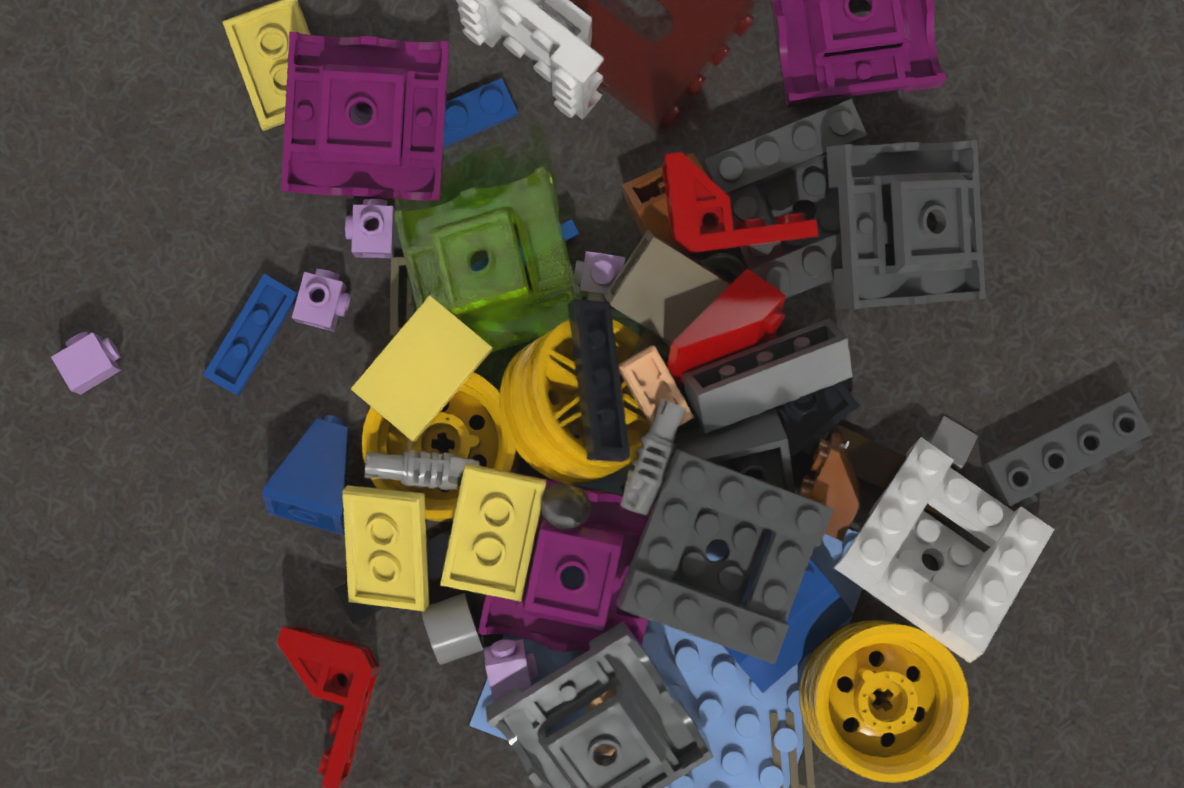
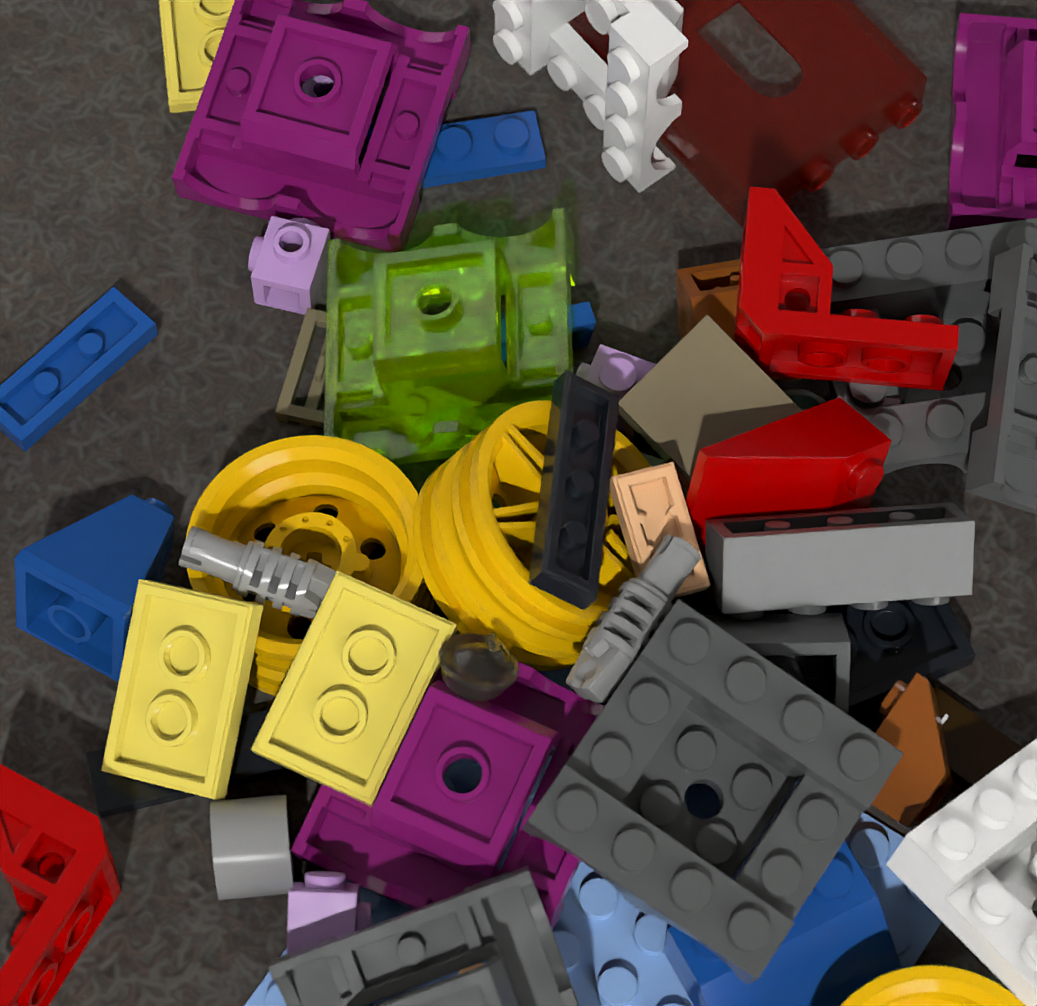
camera: 15 degrees right, 20 degrees down
(321, 300) = (185, 342): lavender brick -> none
(421, 368) = (309, 434): light yellow tile -> none

